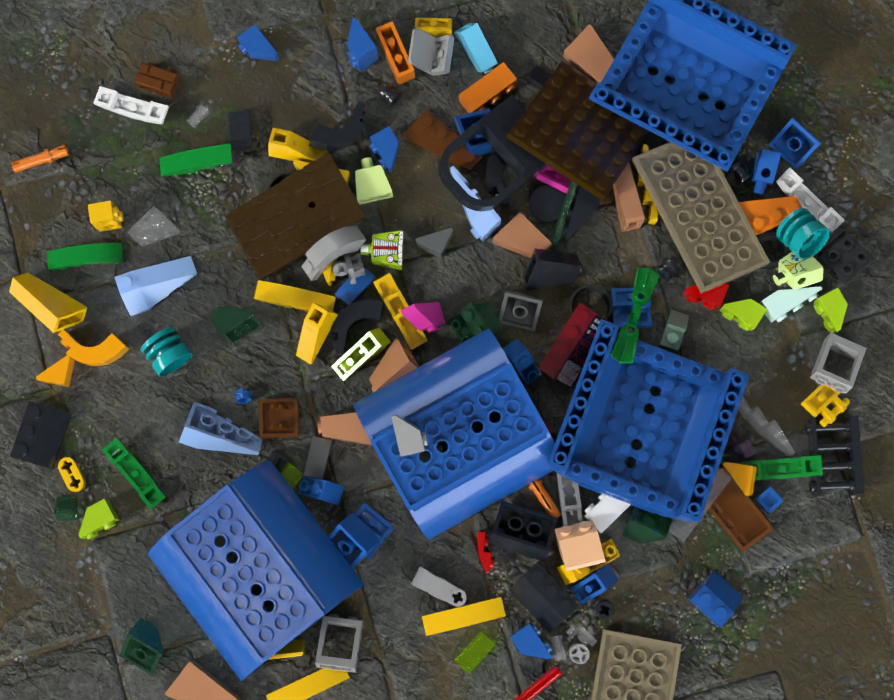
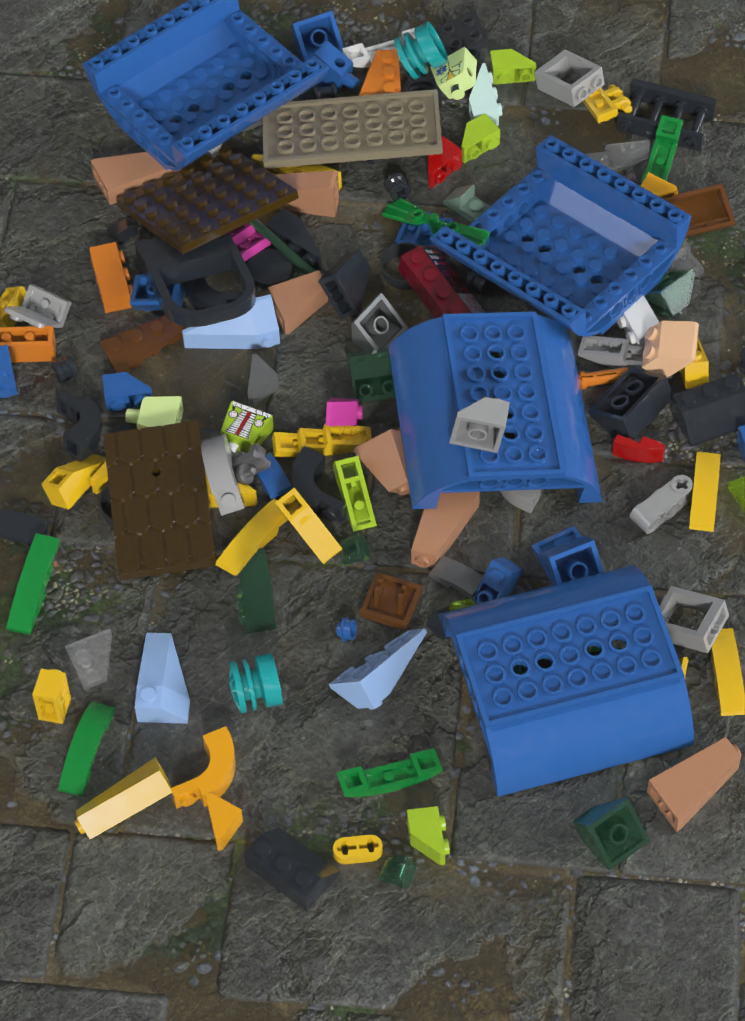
camera: 70 degrees left, 25 degrees down
(316, 373) = (354, 549): none -> clear green slope
(476, 47) = (55, 269): medium azure slope -> none
(594, 584) = (719, 356): blue slope -> none
(769, 500) = (688, 181): blue plate -> none

